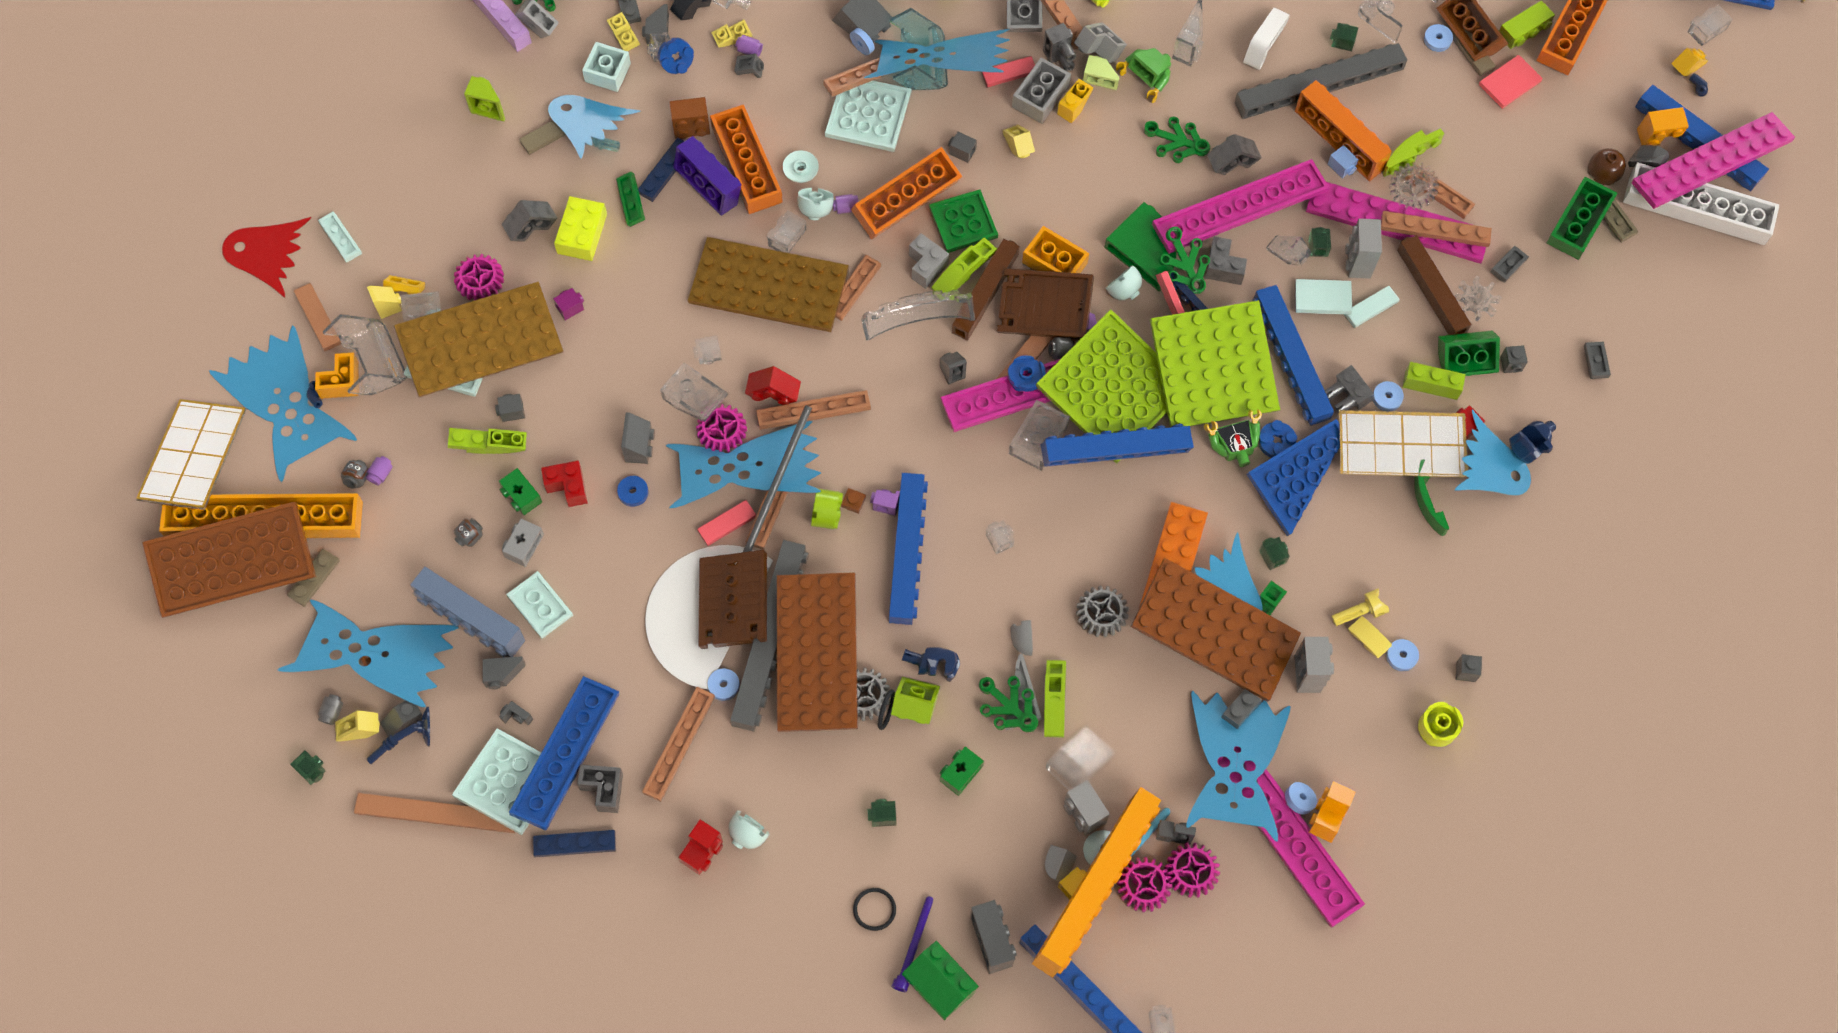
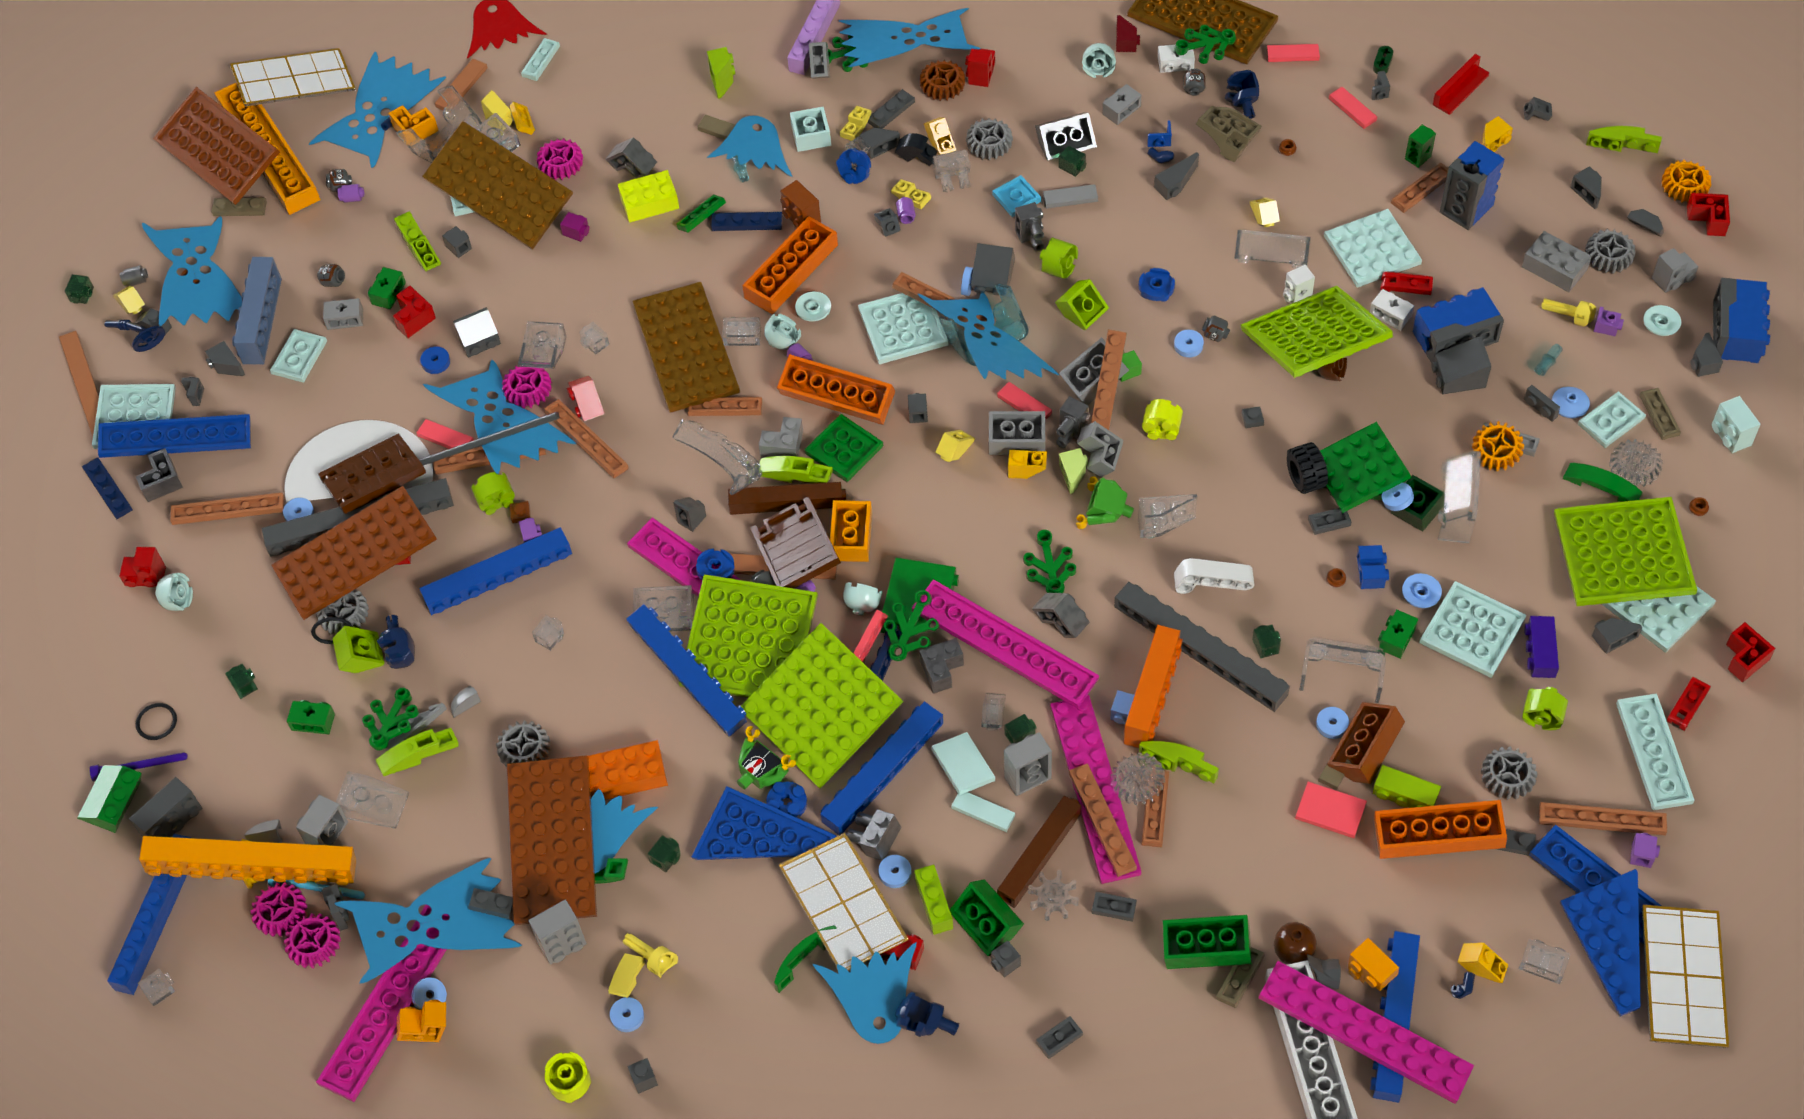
camera: 65 degrees right, 10 degrees down
(707, 175) = (752, 244): dark purple brick -> none

